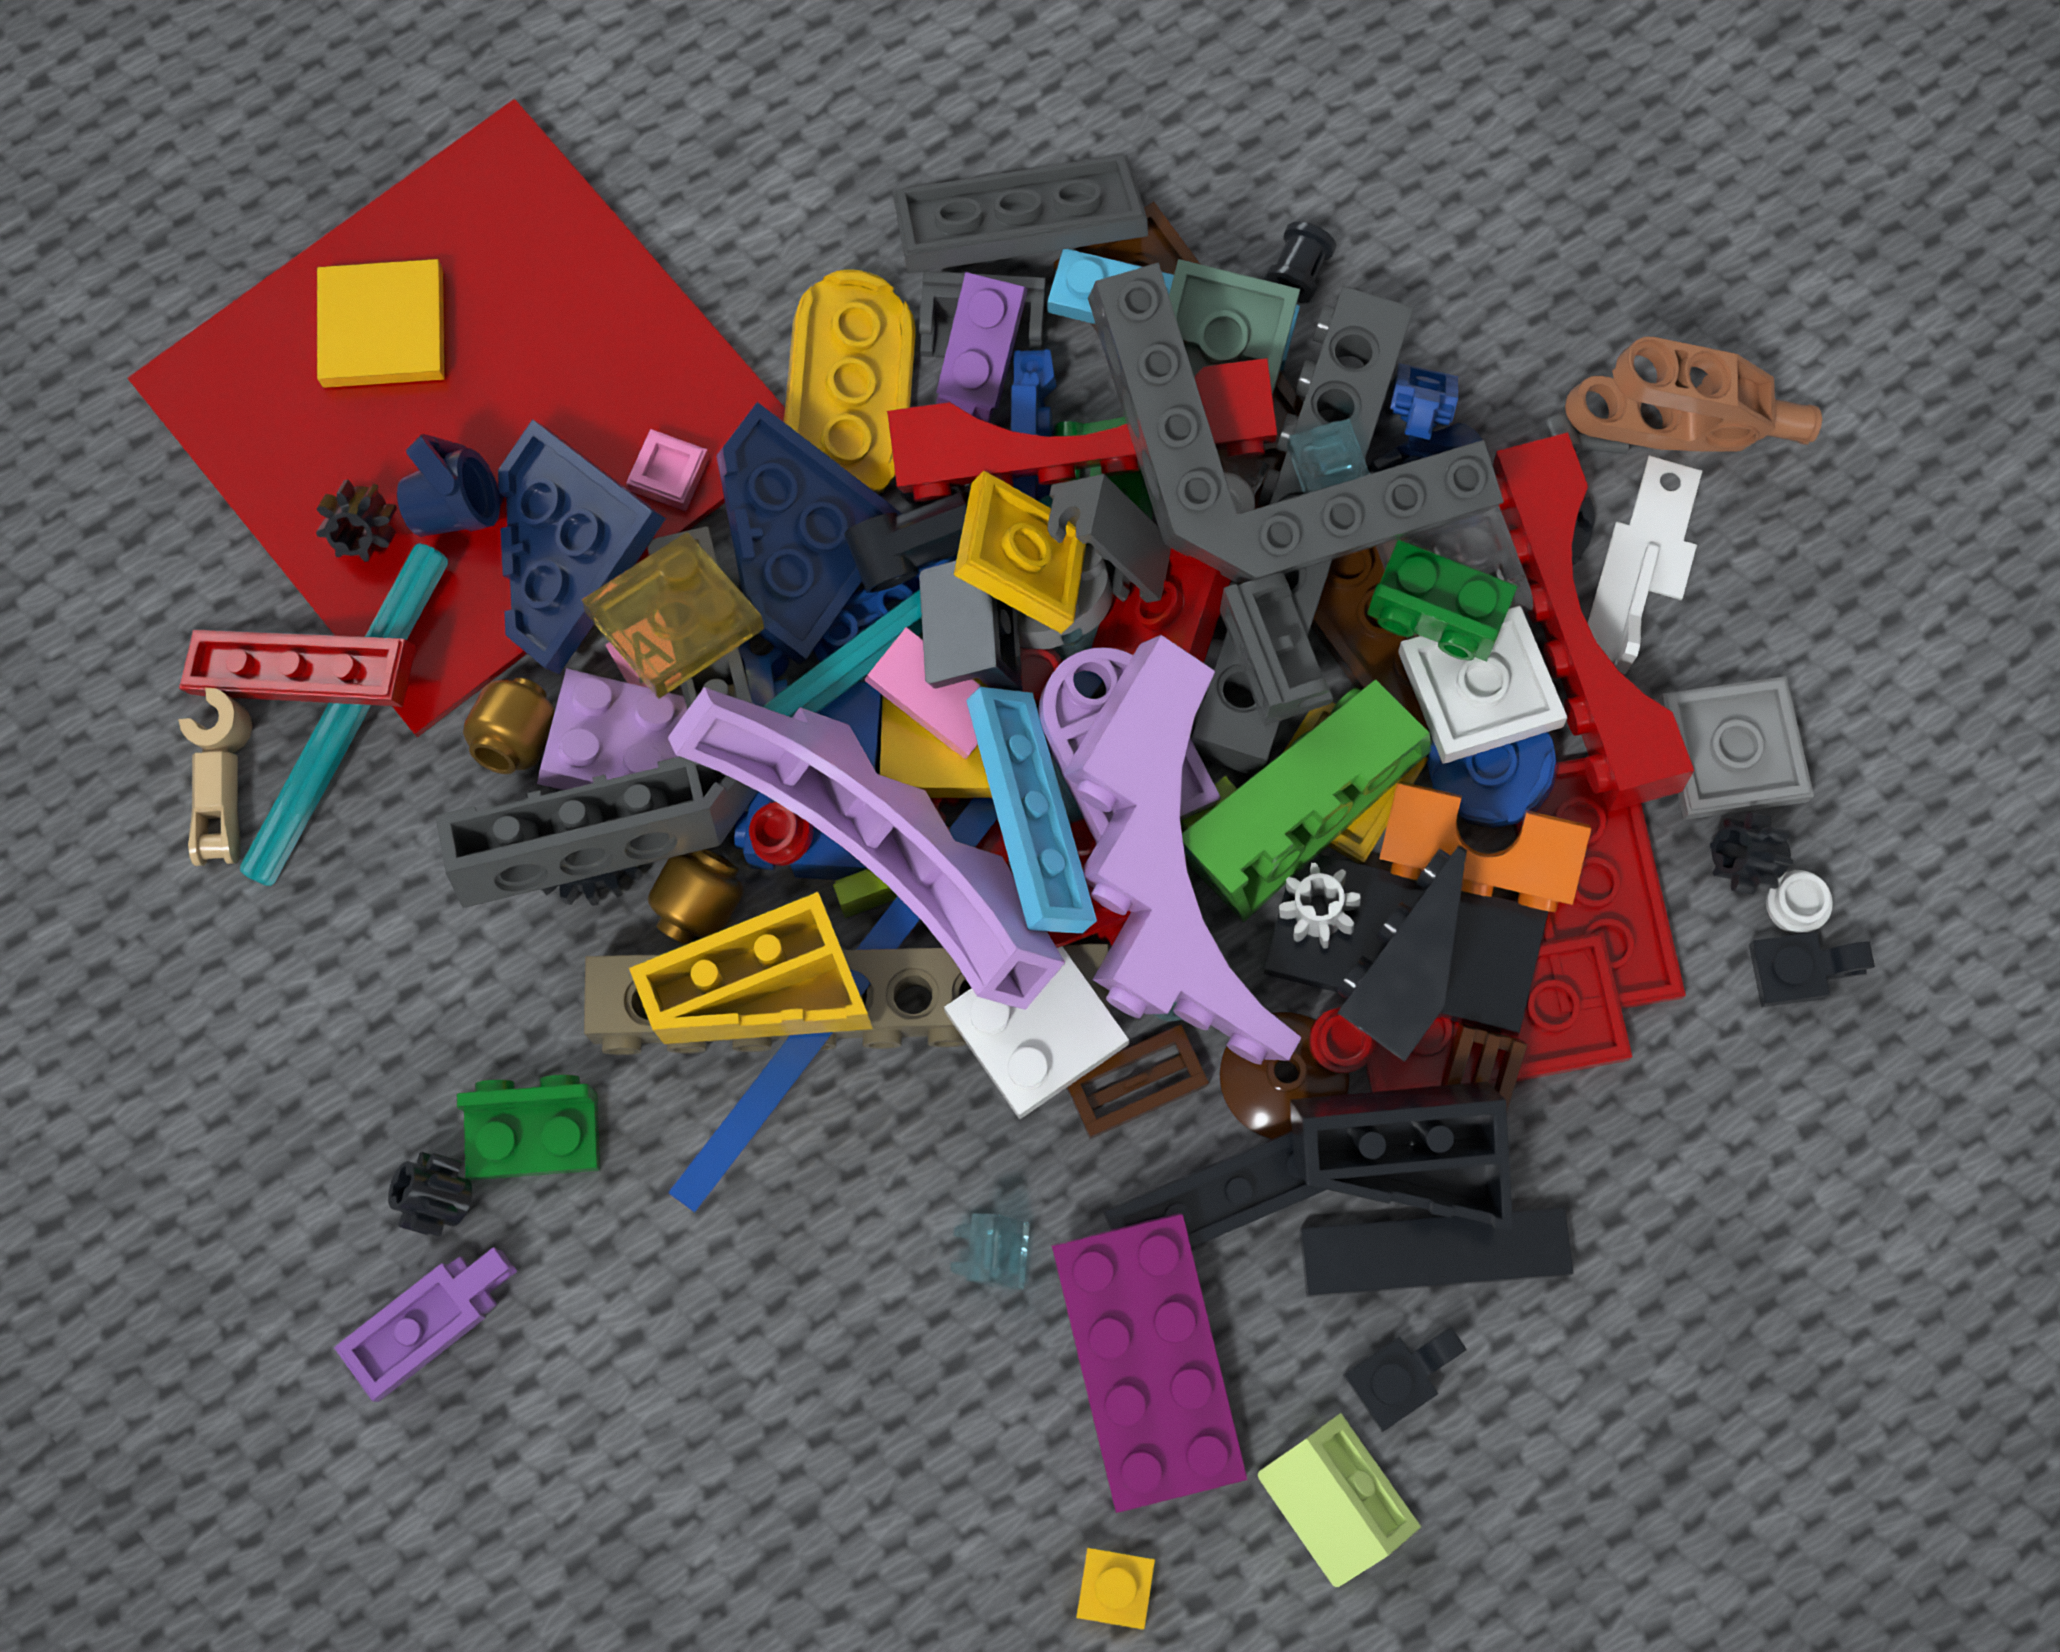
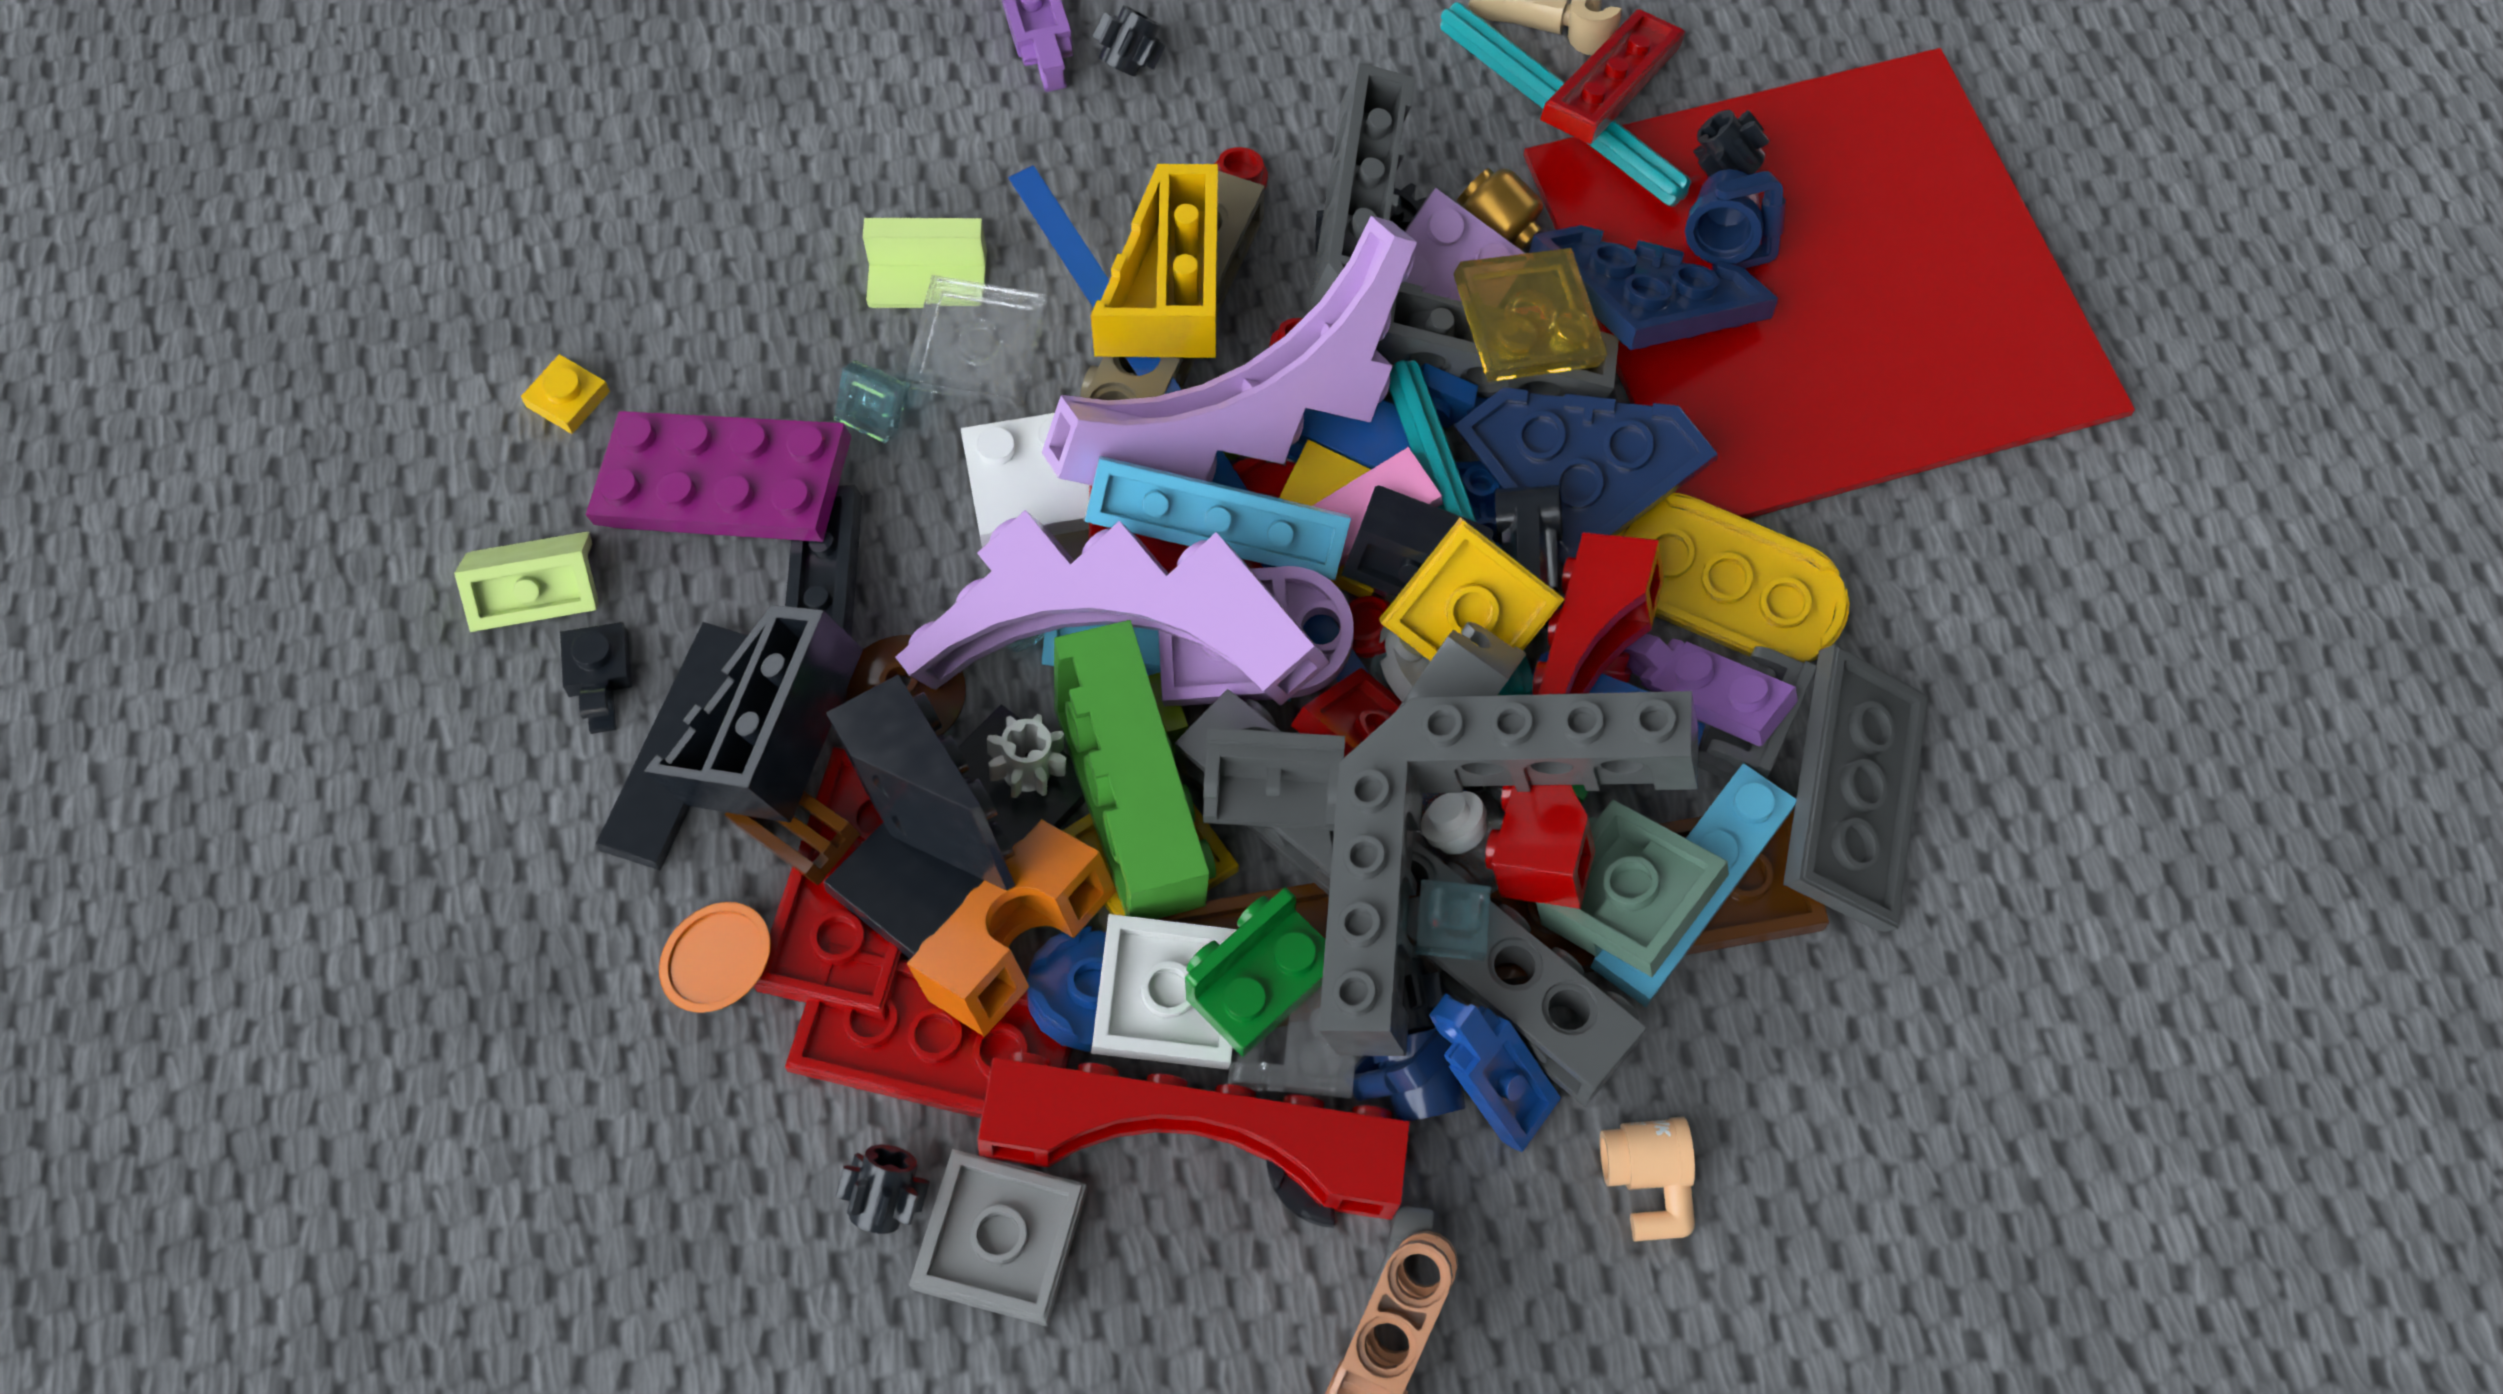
camera: 110 degrees right, 10 degrees down
(380, 323) = (1925, 230): yellow tile -> none
(530, 1128) = (1149, 126): green bracket -> none
(557, 1007) = (1243, 164): none -> red plate
(668, 470) = (1698, 395): bright pink tile -> none
(695, 895) = (1279, 288): pearl gold head -> none
(808, 1281) = (910, 250): none -> yellowish green panel
(874, 1184) = (977, 340): none -> clear tile
(1186, 1059) = (960, 519): reddish brown tile -> none
(1302, 258) = (1710, 1042): black bush -> none
(1420, 276) = (1653, 1157): none -> light nougat piece
(1625, 1103) = (714, 957): none -> orange piece
(1644, 558) = (1245, 1251): white piece -> none
(1798, 970) = (753, 1190): black plate -> none
(1800, 902) = (816, 1225): white plate -> none

